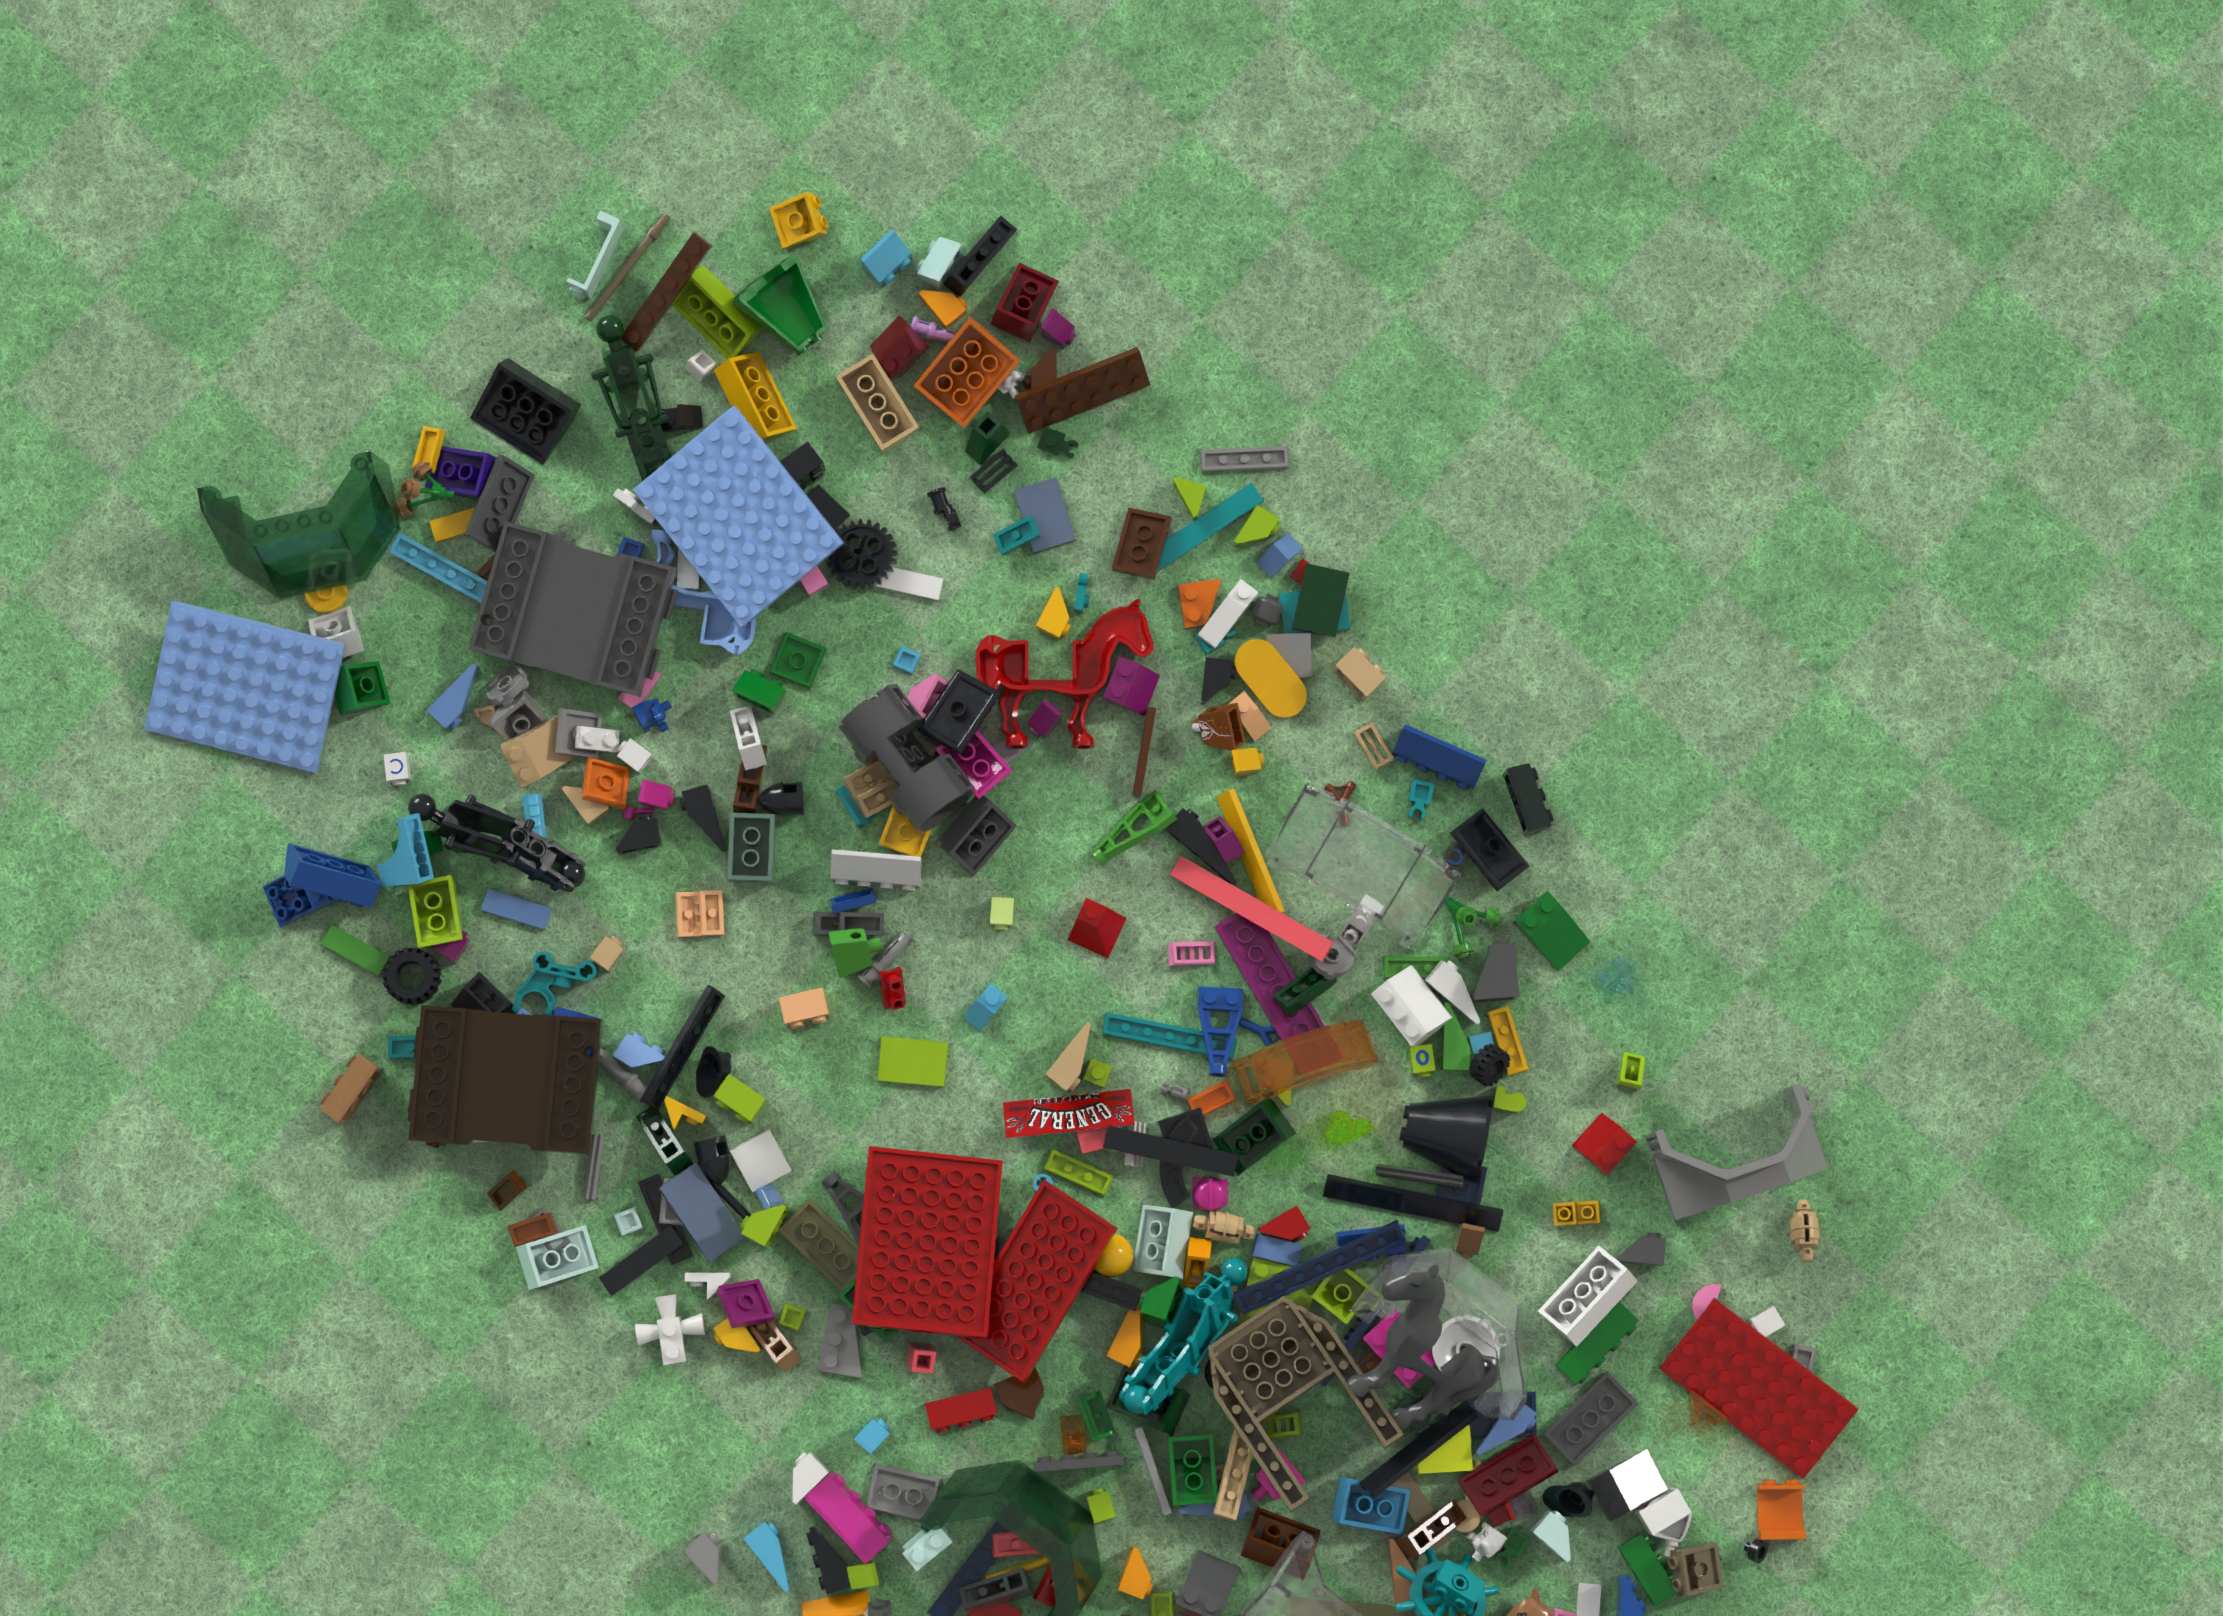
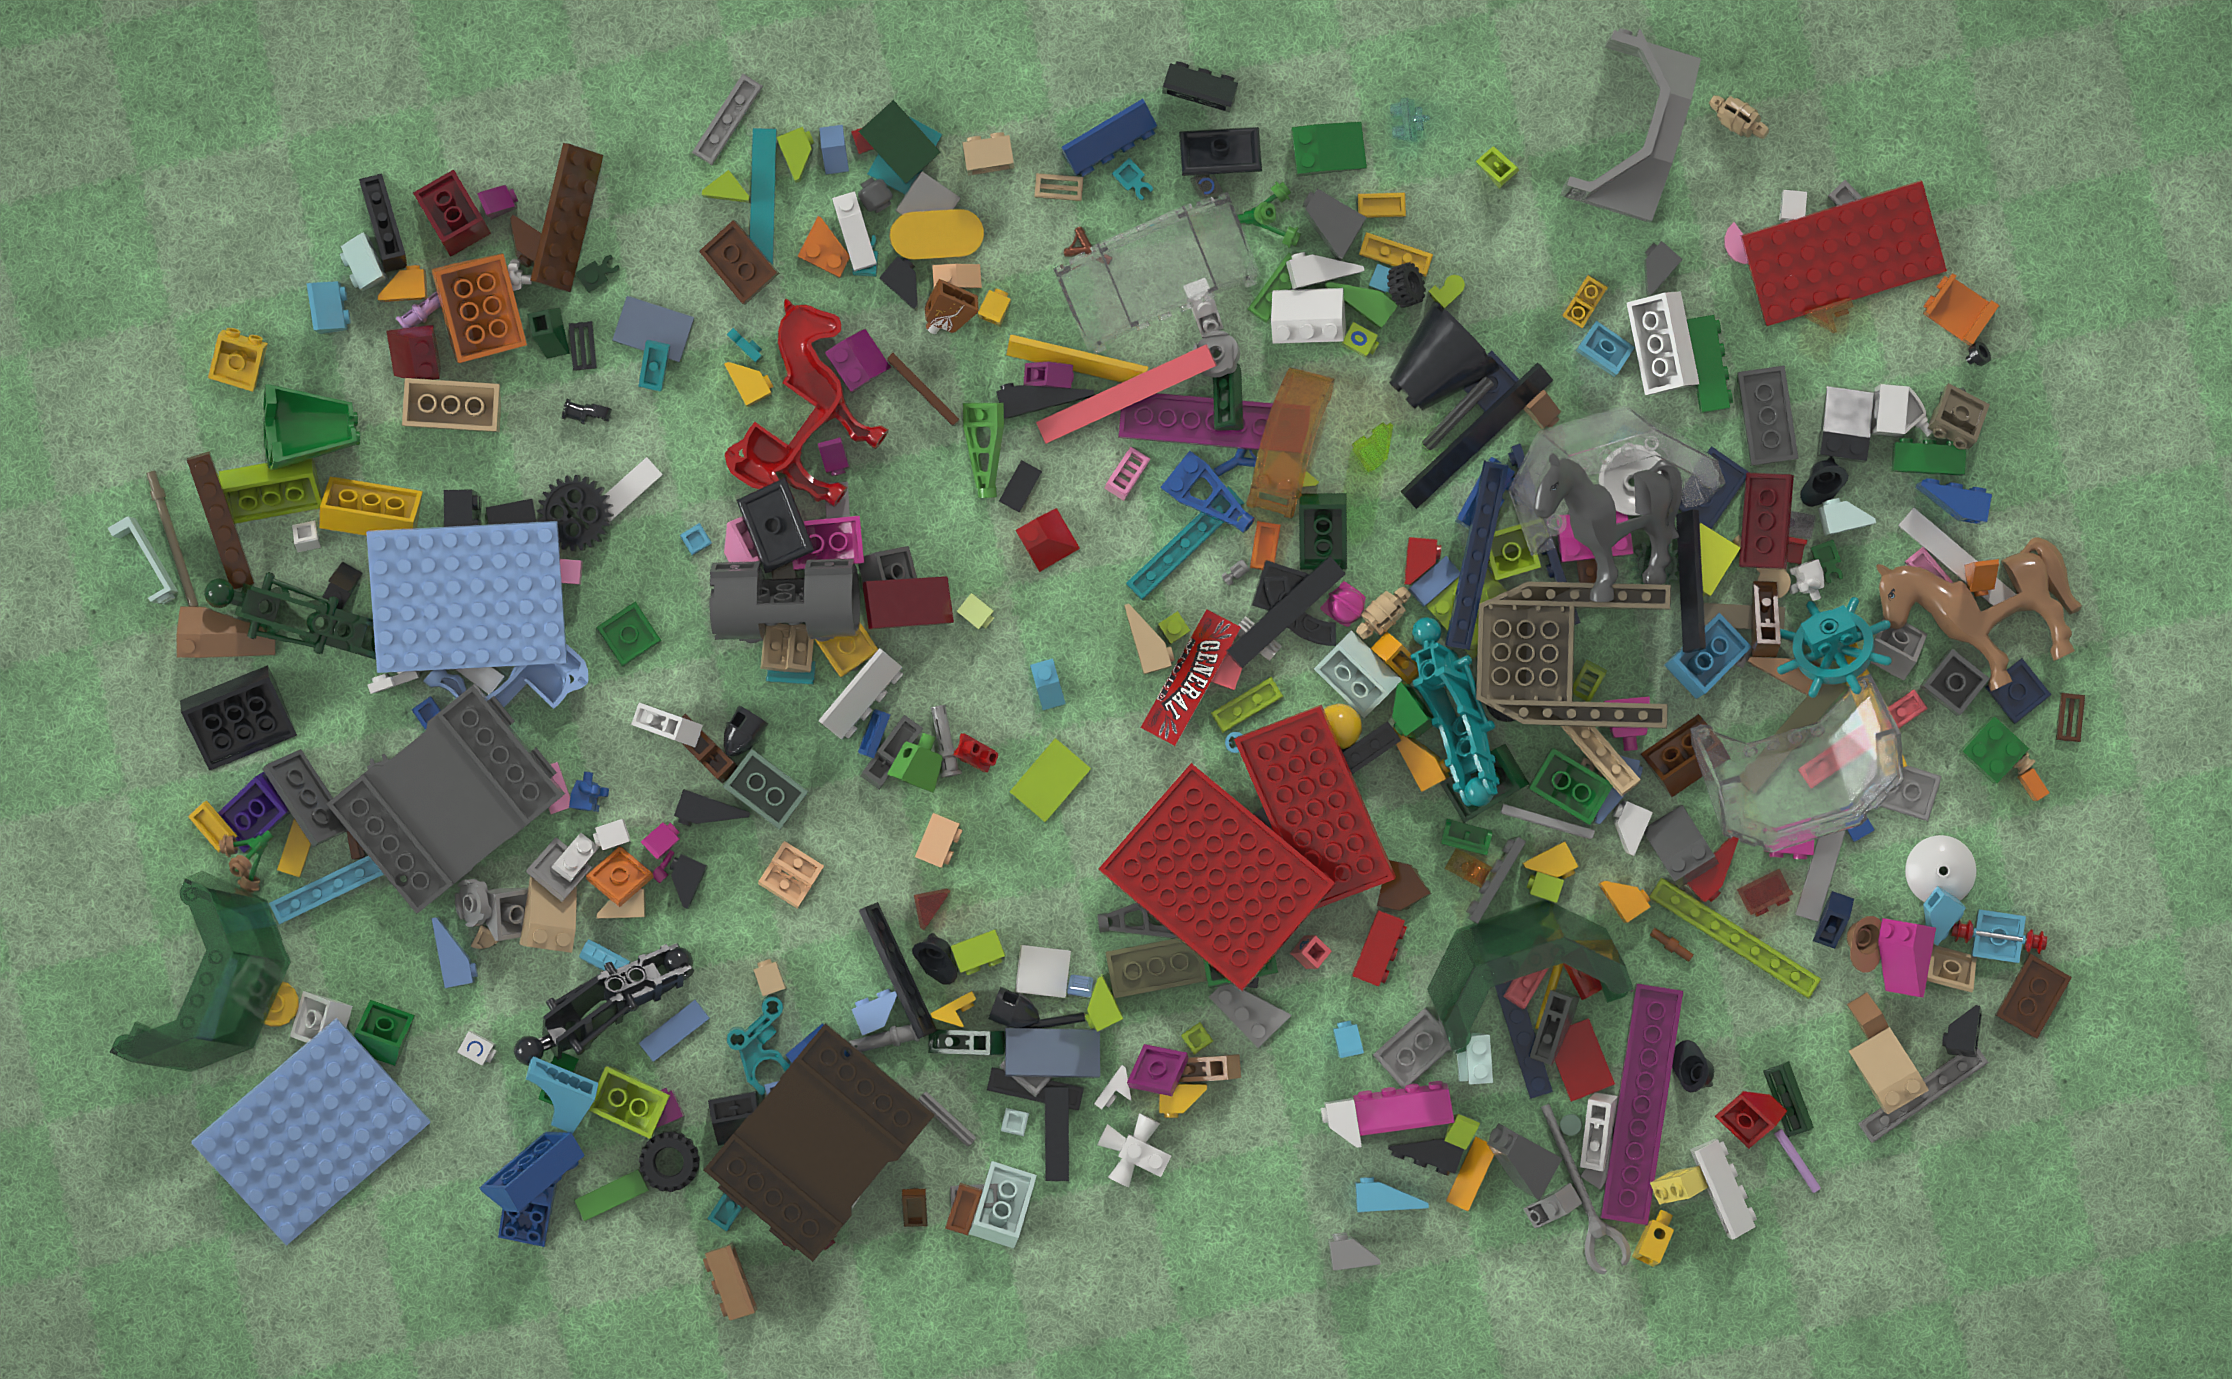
camera: 50 degrees left, 5 degrees up
(576, 348) = (214, 634): none -> medium nougat wedge
(749, 1035) = (928, 905): none -> clear red slope
(759, 691) = (633, 686): green slope -> none
(971, 854) = (907, 602): none -> dark red tile
(1123, 878) = (1020, 486): none -> black tile
(1124, 1498) = (1553, 862): none -> yellow slope
(1196, 1538) = (1630, 824): none -> white slope
(1507, 1429) = (1726, 497): medium blue slope -> none
(1538, 1003) = (1382, 205): none -> yellow tile
(1551, 1254) = (1605, 349): none -> medium azure slope
(1604, 1144) = (1543, 235): red slope -> none

